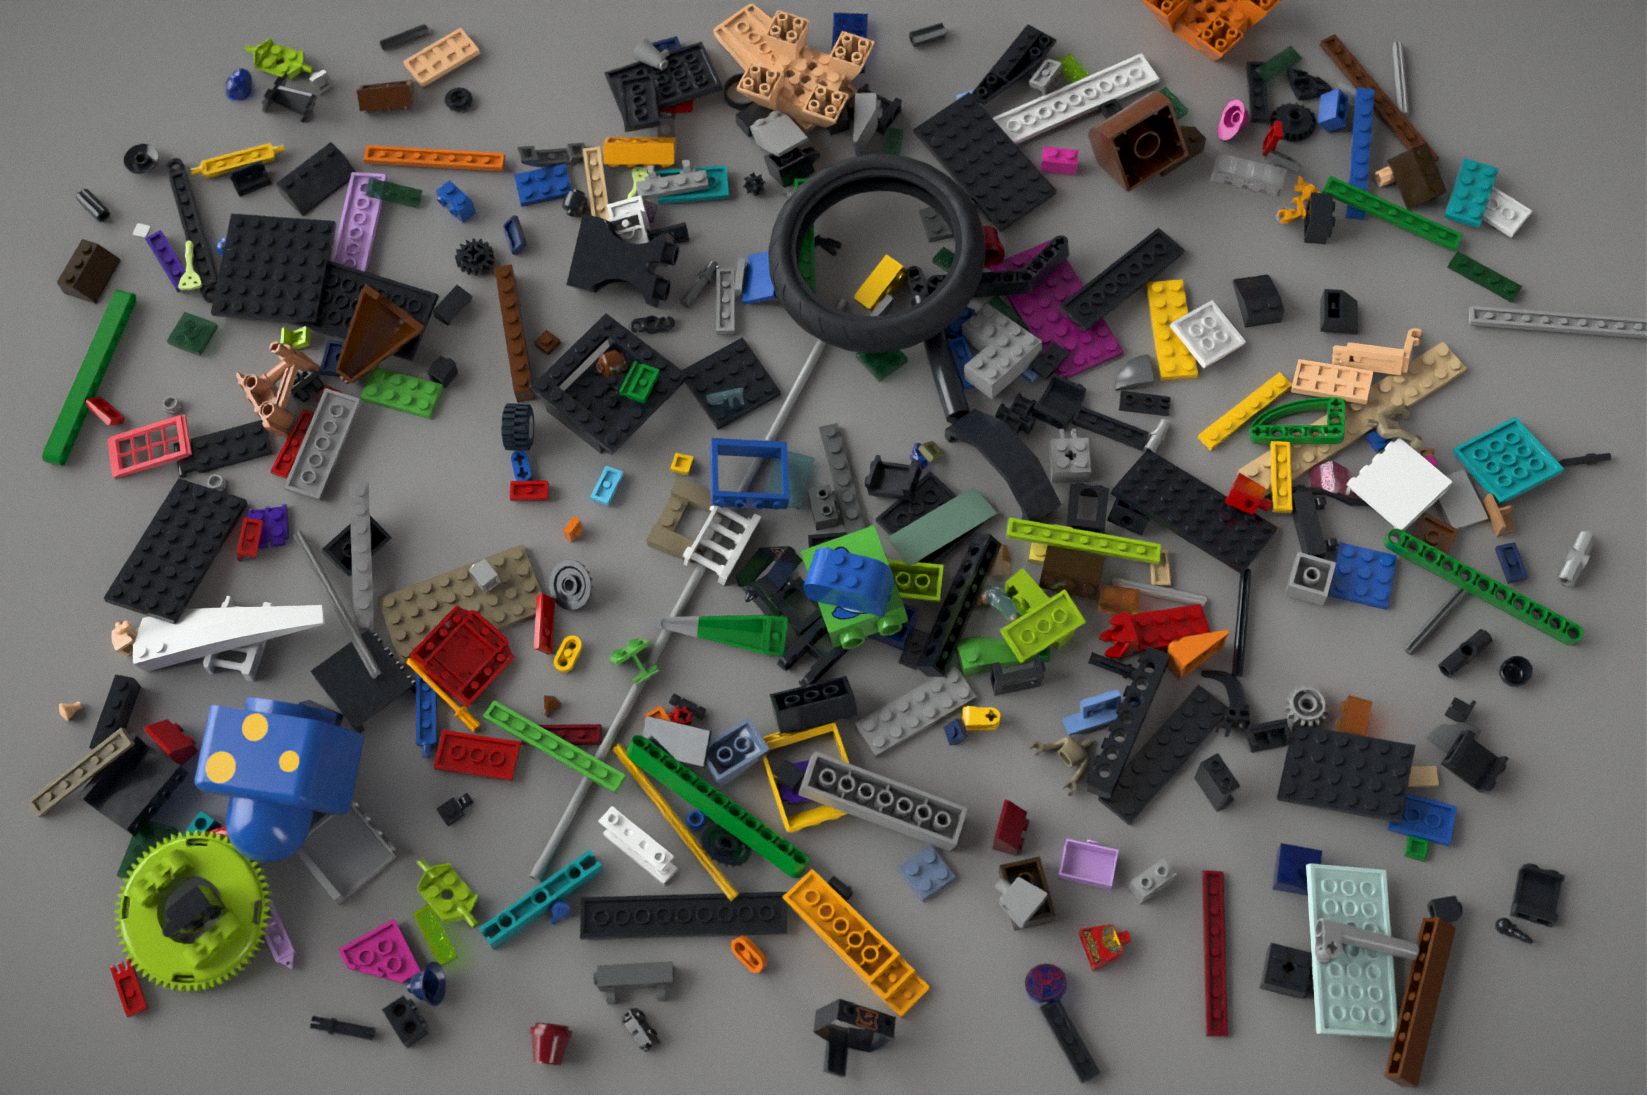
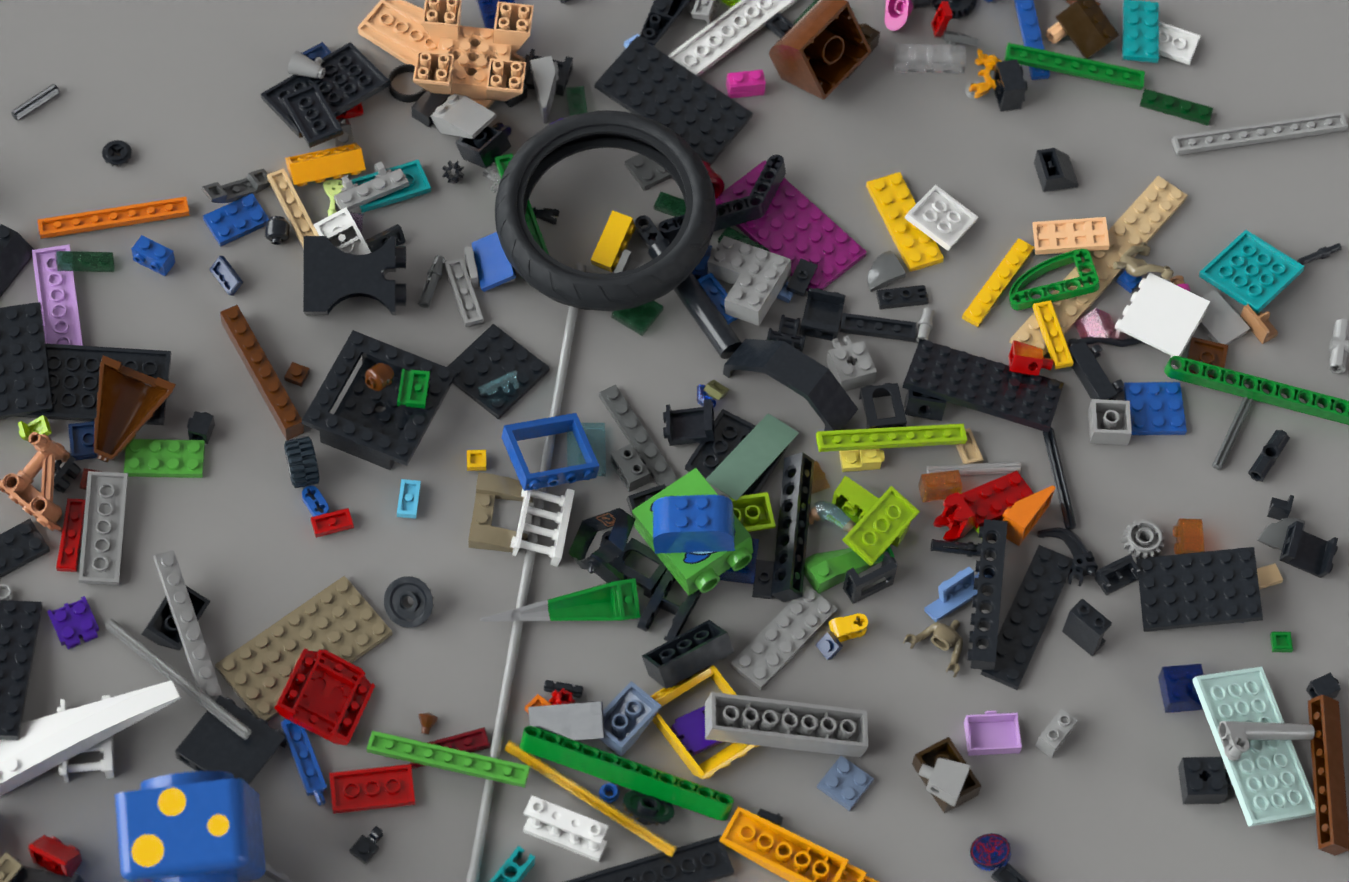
camera: 25 degrees left, 5 degrees down
(249, 538) = (61, 638): red panel -> none
(385, 96) = (39, 165): reddish brown slope -> none
(441, 57) = (83, 114): light nougat plate -> none
(452, 304) = (187, 359): black hinge -> none
(461, 713) = (342, 753): light orange piece -> none
(474, 256) = (184, 311): black gear -> none
(484, 575) = (319, 614): light grey brick -> none
(544, 623) = (394, 646): red tile -> none
(567, 655) = (427, 670): yellow plate -> none
(573, 529) = (391, 548): orange plate -> none
(634, 646) = (492, 649): bright green plate -> none
(659, 328) = (404, 327): black piece -> none
(789, 776) = (689, 727): black brick -> none
(1010, 828) = (911, 720): dark red slope -> none
(1071, 570) = (889, 468): dark brown slope -> none
(1103, 944) = (1030, 802): torso -> none
(1121, 280) = (843, 185): black plate -> none
(1214, 954) = (1133, 784): dark red tile -> none
(1258, 300) = (977, 175): black slope -> none
(1377, 358) = (1104, 204): light nougat hinge -> none
(1426, 820) = (1282, 614): blue plate -> none
(1511, 562) = (1283, 363): dark blue plate -> none
(1516, 671) = (1318, 460): black hair -> none

